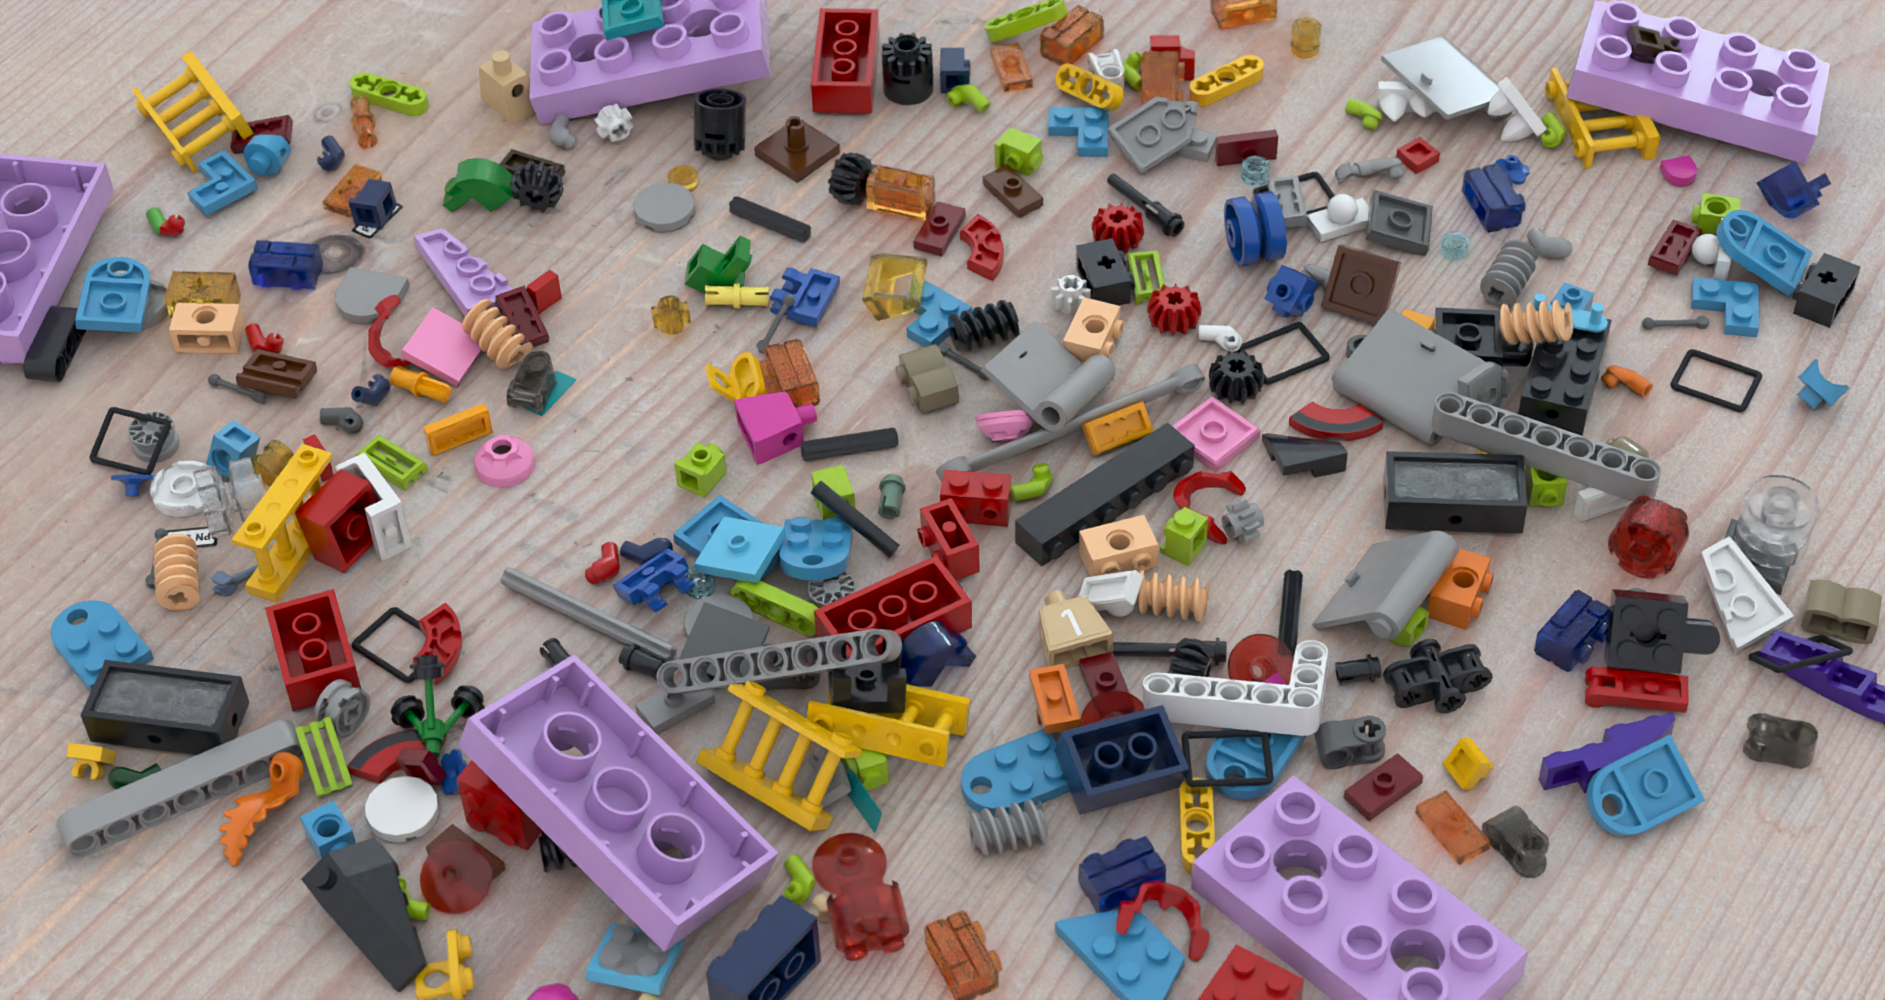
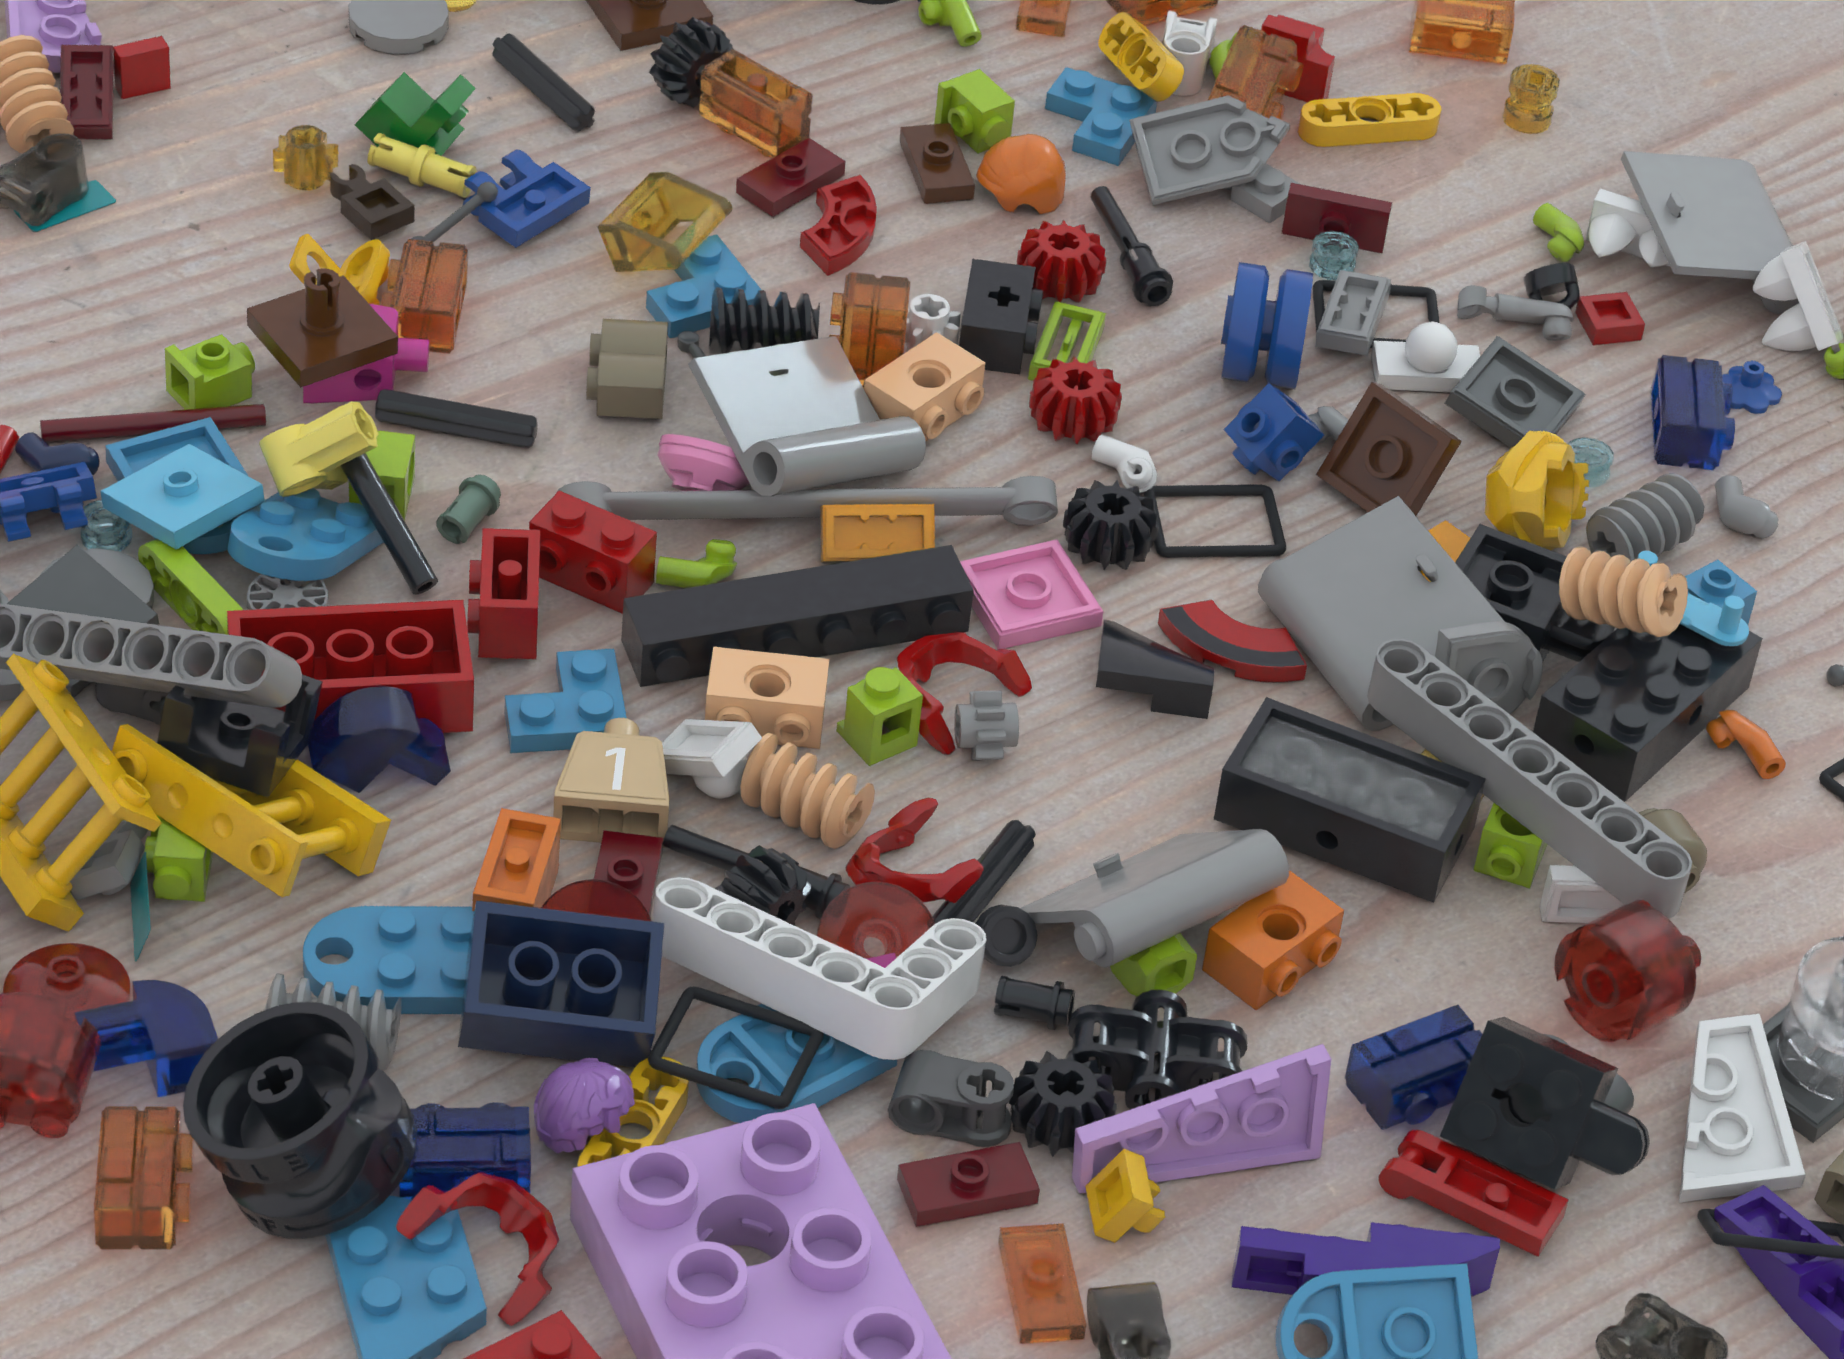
camera: 15 degrees right, 5 degrees down
(684, 509) = (149, 422): none -> dark red bar
(723, 331) = (371, 206): none -> dark brown plate
(756, 421) = (322, 329): none -> reddish brown tile
(801, 499) = (312, 452): none -> light yellow piece
(927, 868) = (160, 1026): none -> clear blue brick
(1021, 593) = (586, 702): none -> dark azure plate
(1040, 892) = (300, 1120): none -> black piece
(1050, 305) = (871, 320): none -> clear orange brick
(1066, 180) = (1023, 172): none -> orange hair
(1167, 822) = (580, 1103): none -> medium lavender hair
(1228, 626) = (866, 866): none -> red helmet
(1325, 633) = (1009, 935): none -> black tile
(1380, 143) = (1553, 280): none -> black tile
(1409, 722) = (1057, 1098): none -> black gear
(1446, 276) = (1537, 490): none -> yellow helmet
(1496, 706) = (1219, 1127): none -> lavender wing

